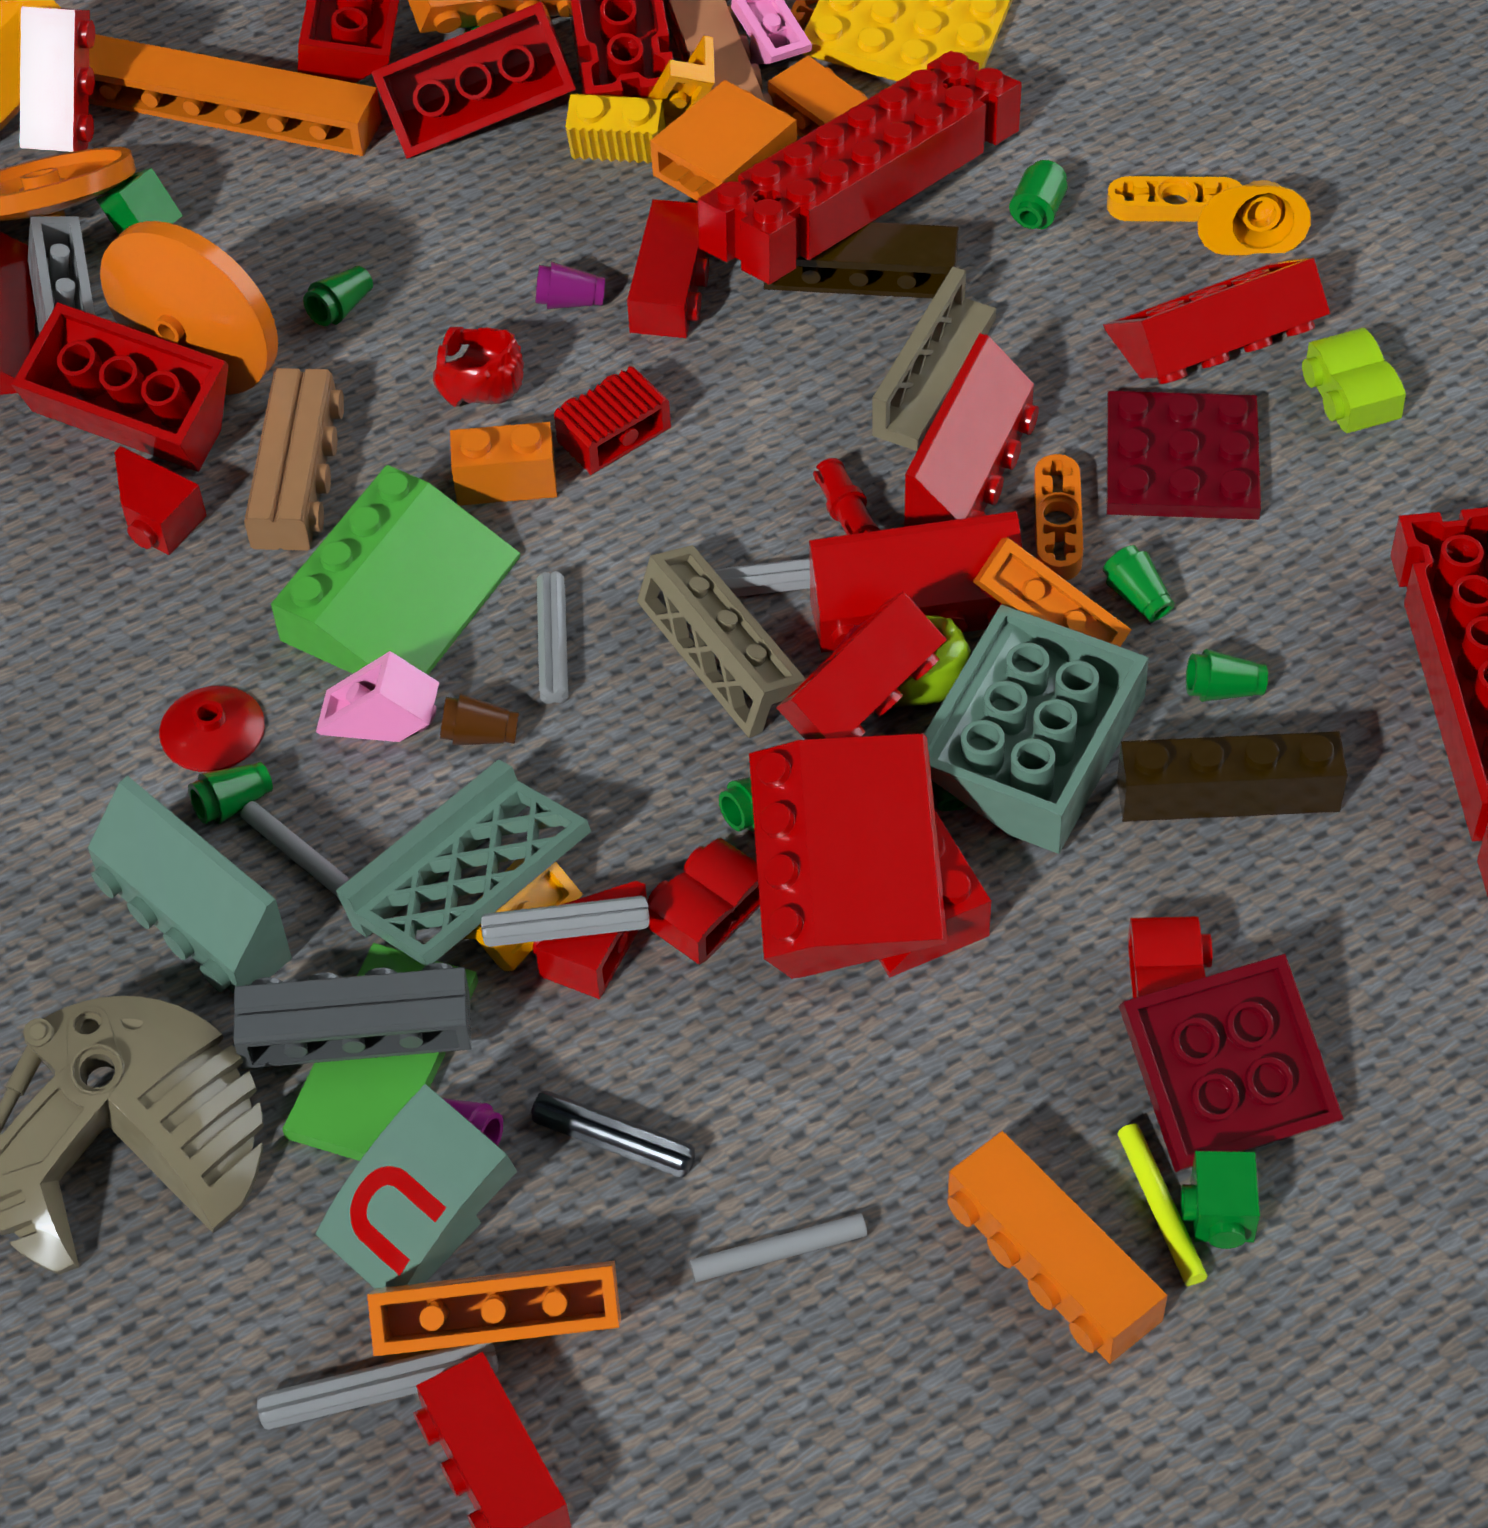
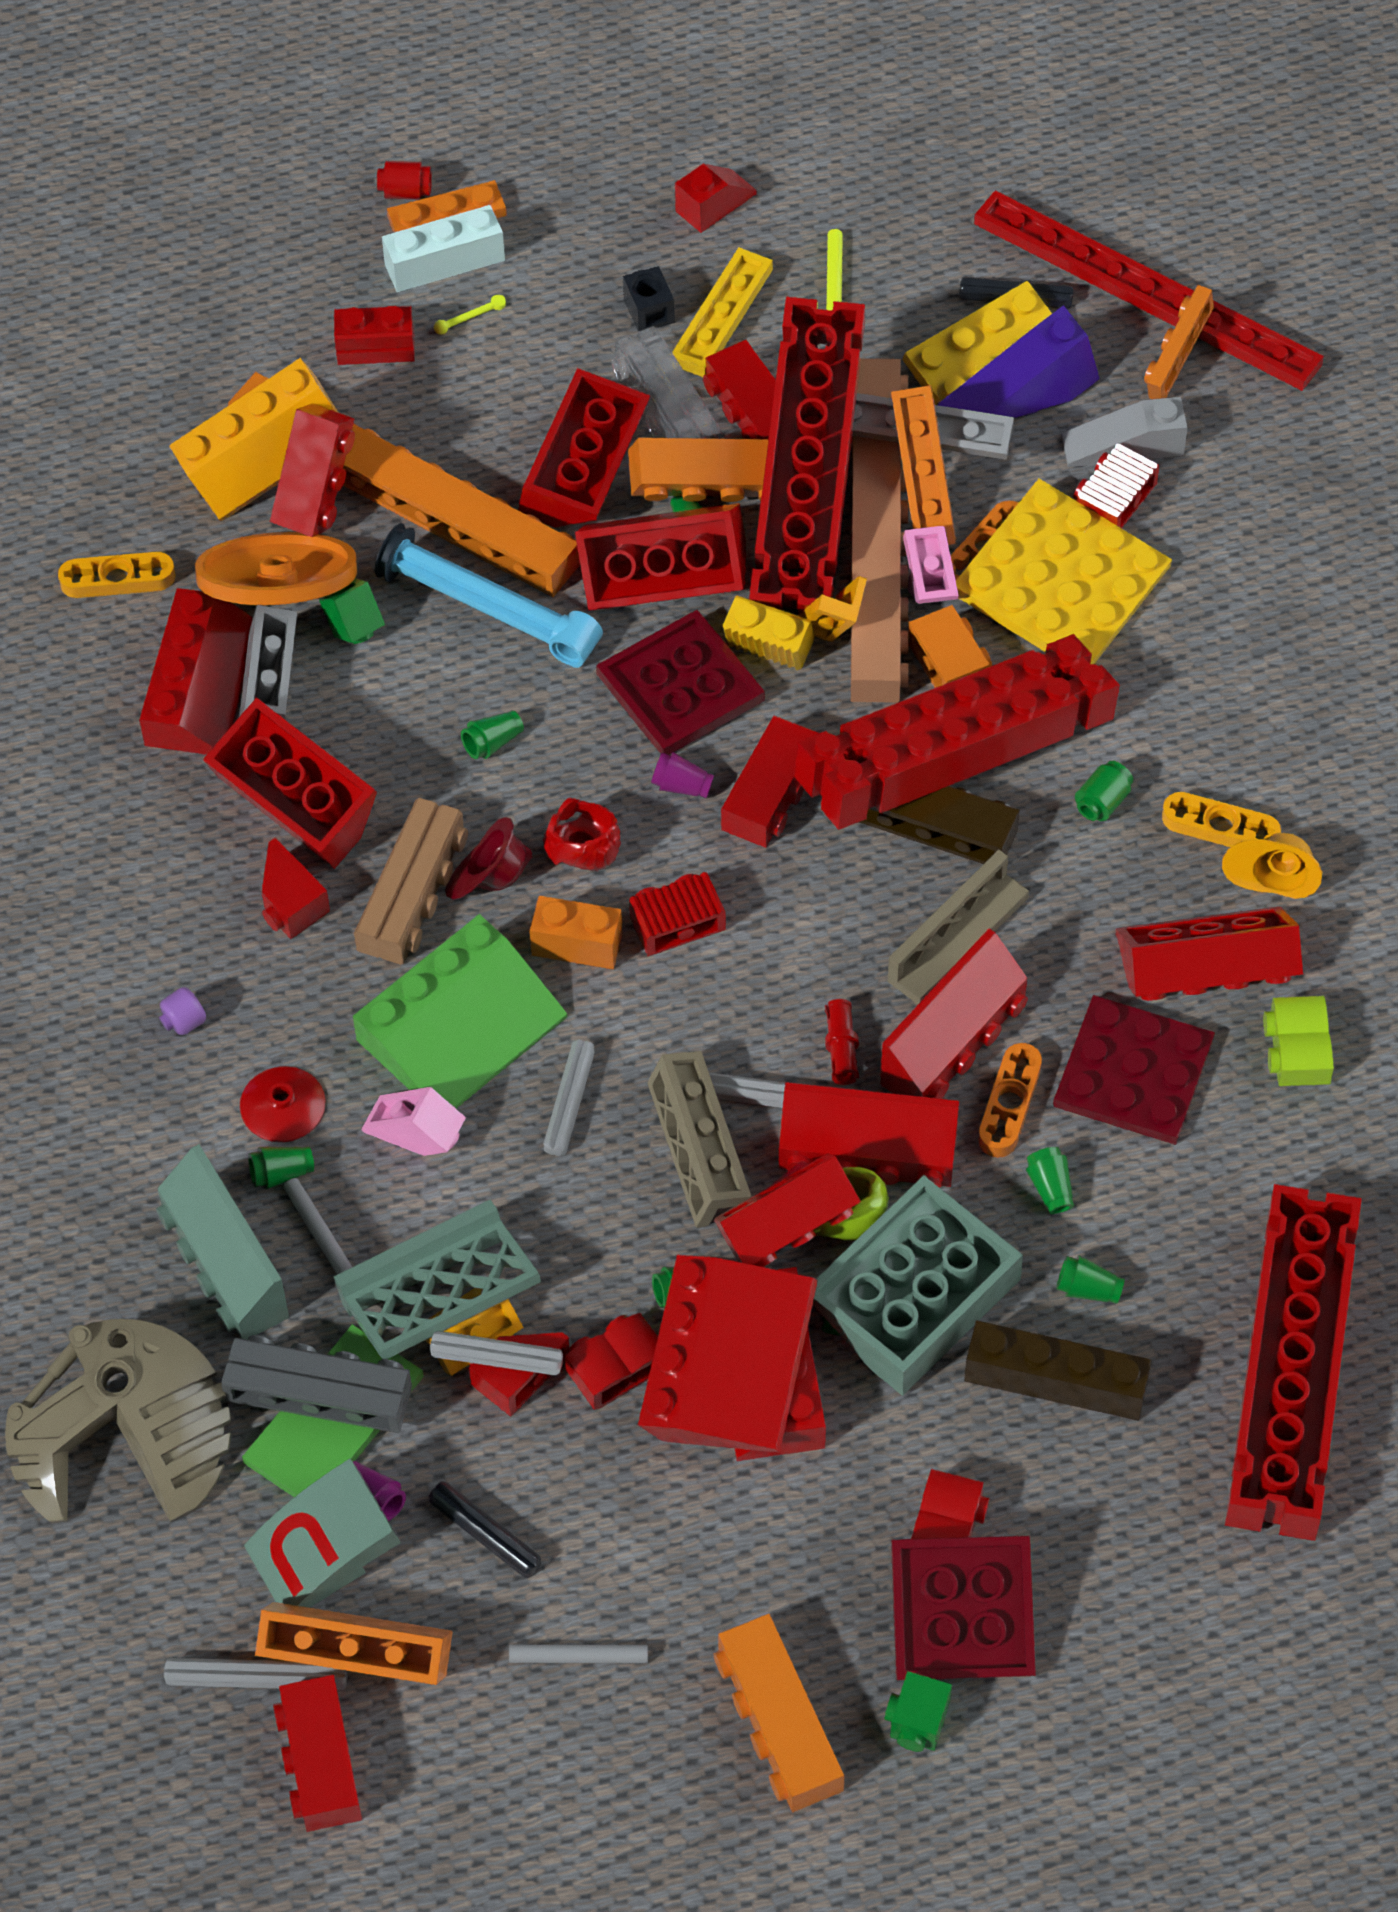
camera: 15 degrees right, 5 degrees up
(61, 656) = (181, 1011): none -> medium lavender piece
(191, 295) = (359, 729): orange dish -> none
(384, 417) = (492, 863): none -> dark red piece
(394, 182) = (569, 636): none -> medium azure piece
(477, 722) = (486, 1158): reddish brown cone -> none
(534, 200) = (680, 683): none -> dark red plate
(719, 140) = (844, 681): orange brick -> none
(1033, 588) = (965, 1181): orange plate -> none
(1162, 1205) = (875, 1702): neon yellow bar -> none

